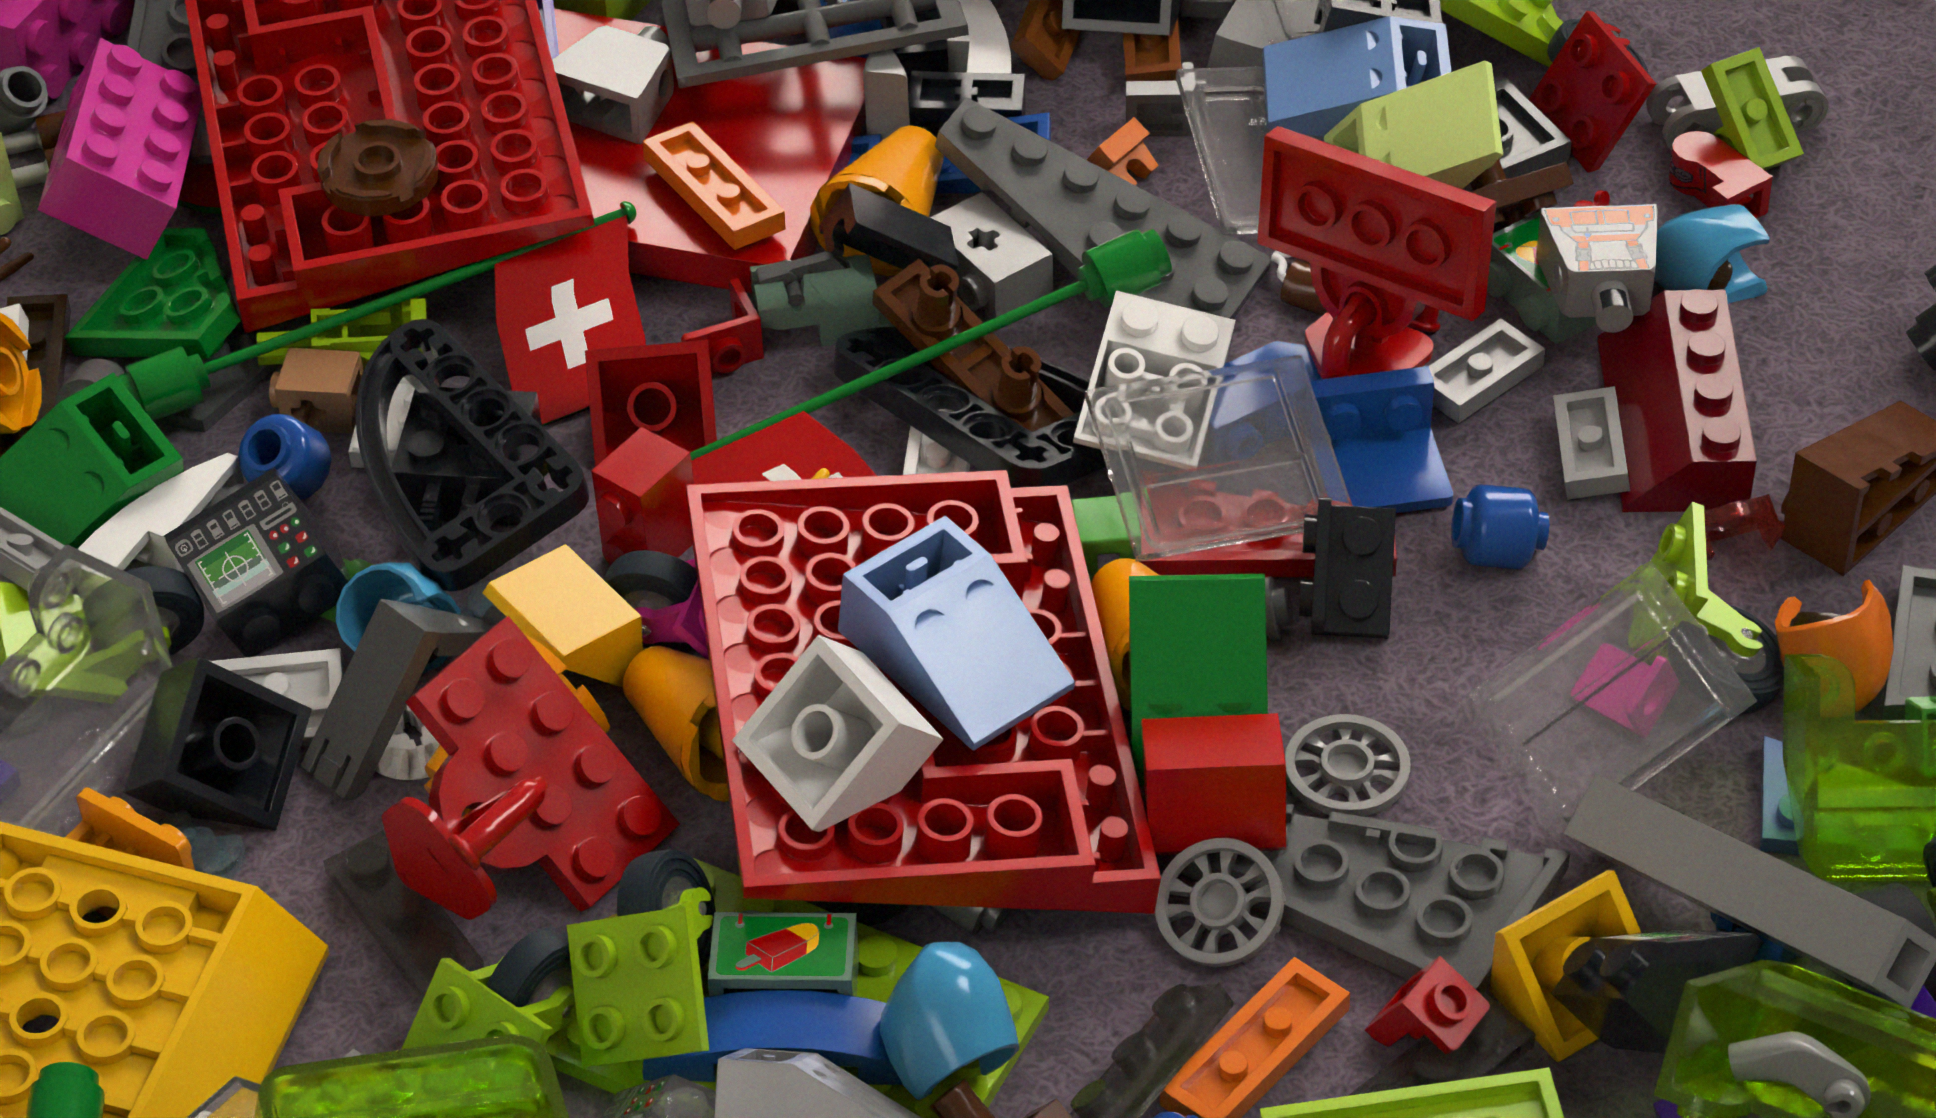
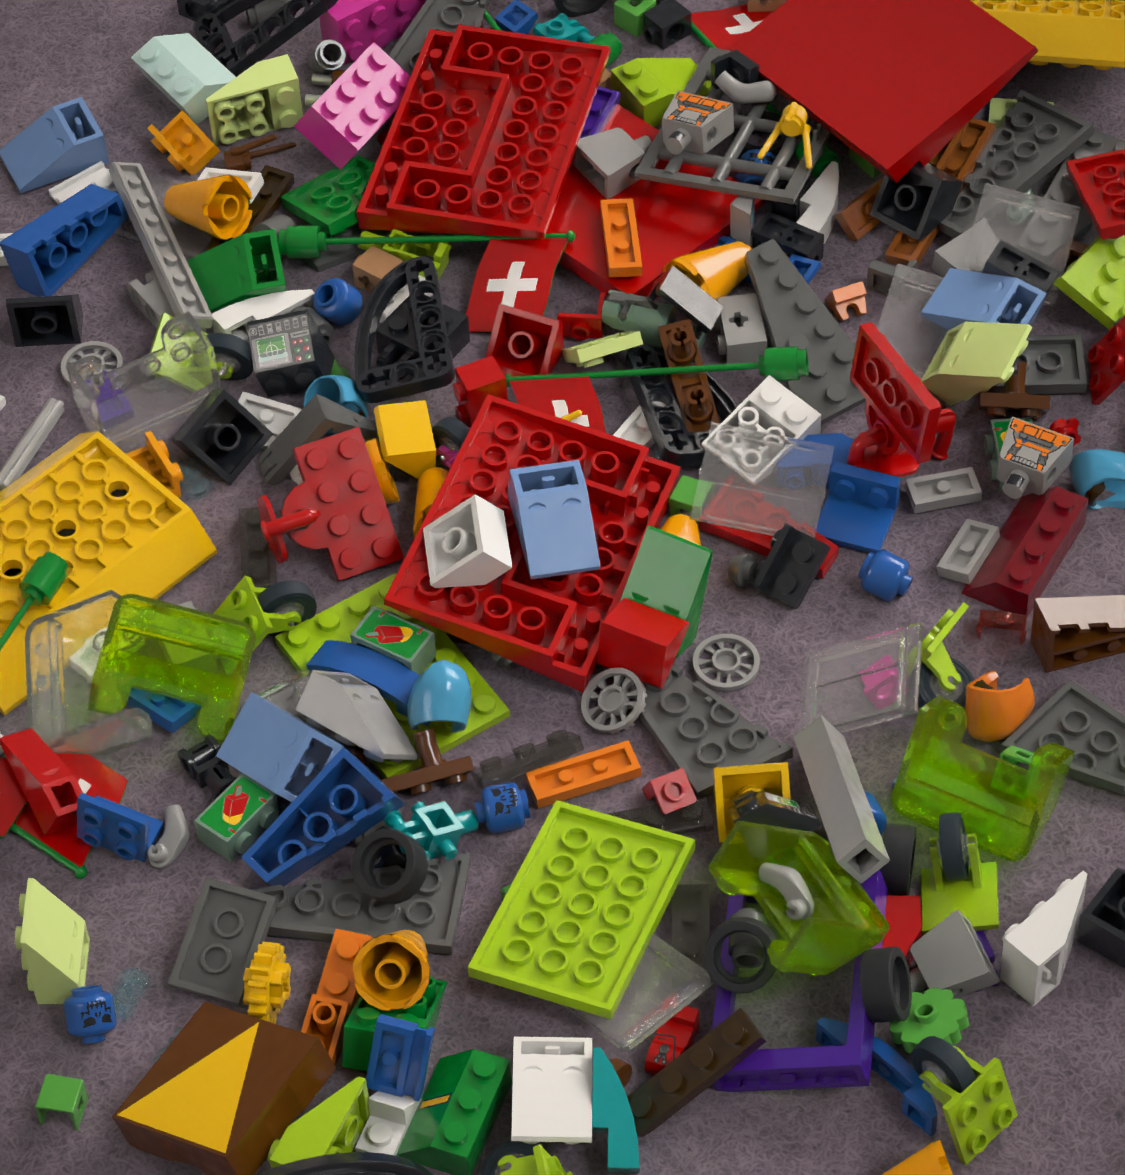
camera: 30 degrees right, 5 degrees up
(378, 168) = (456, 167): reddish brown tile -> none
(642, 966) = (329, 610): lime plate -> none
(786, 367) = (591, 352): none -> yellowish green plate

